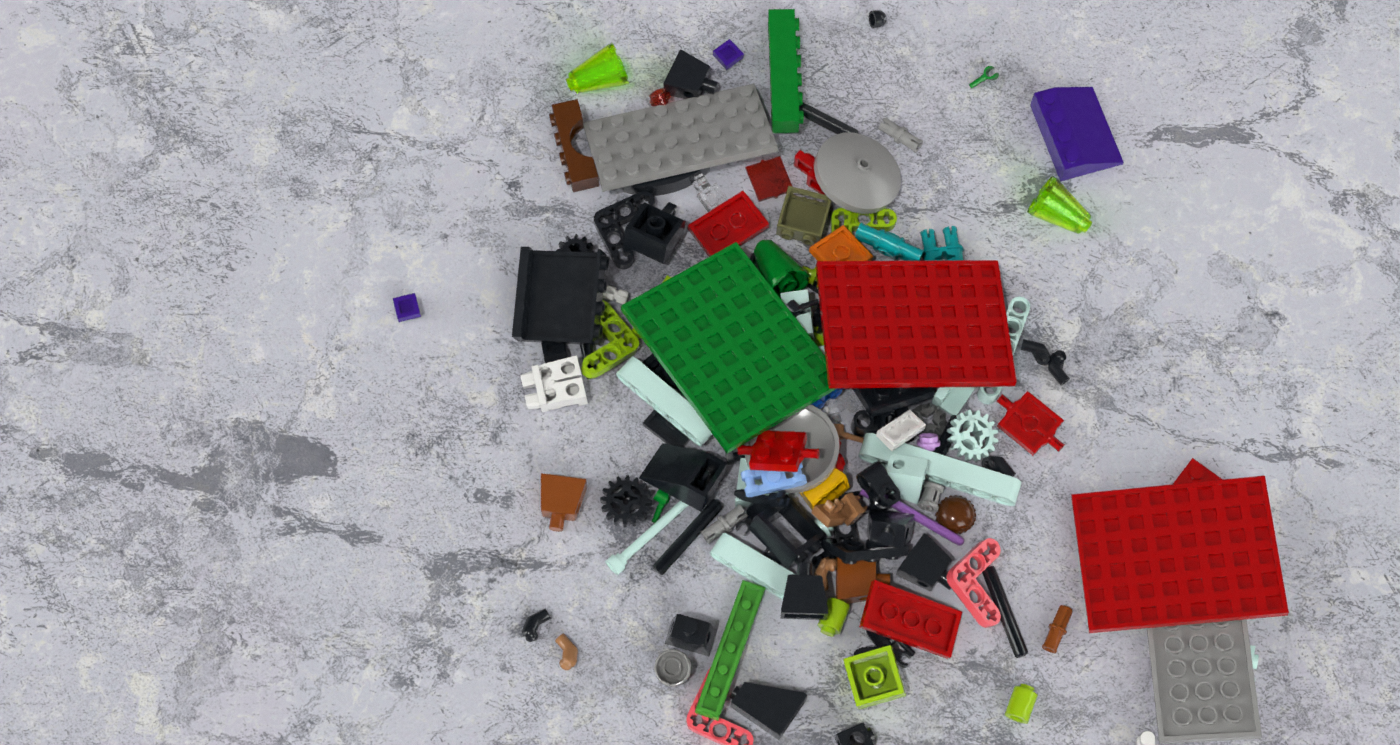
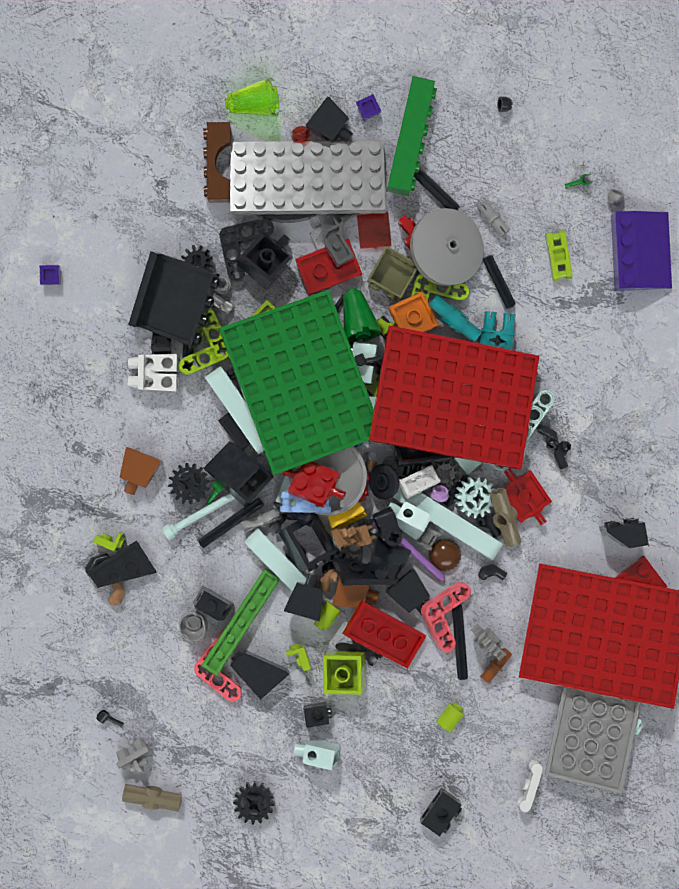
camera: 15 degrees right, 20 degrees up
(541, 592) = (106, 541): none -> lime bracket
(568, 617) = (122, 566): none -> black wing
(613, 268) = (227, 285): none -> light grey plate
(726, 190) = (334, 239): none -> dark grey plate
(818, 674) = (303, 658): none -> lime bracket
(859, 440) = (384, 481): none -> black wheel
(927, 199) = (499, 282): none -> black axle
(986, 156) = (558, 255): none -> lime plate
(1007, 437) = (505, 517): none -> dark tan piece
(1016, 518) = (491, 570): none -> black arm
(1030, 83) = (615, 196): none -> light grey hinge
(1039, 596) = (488, 642): none -> light grey gear
(1060, 207) = (604, 318): clear neon green cone -> none
(1162, 433) = (629, 534): none -> black slope

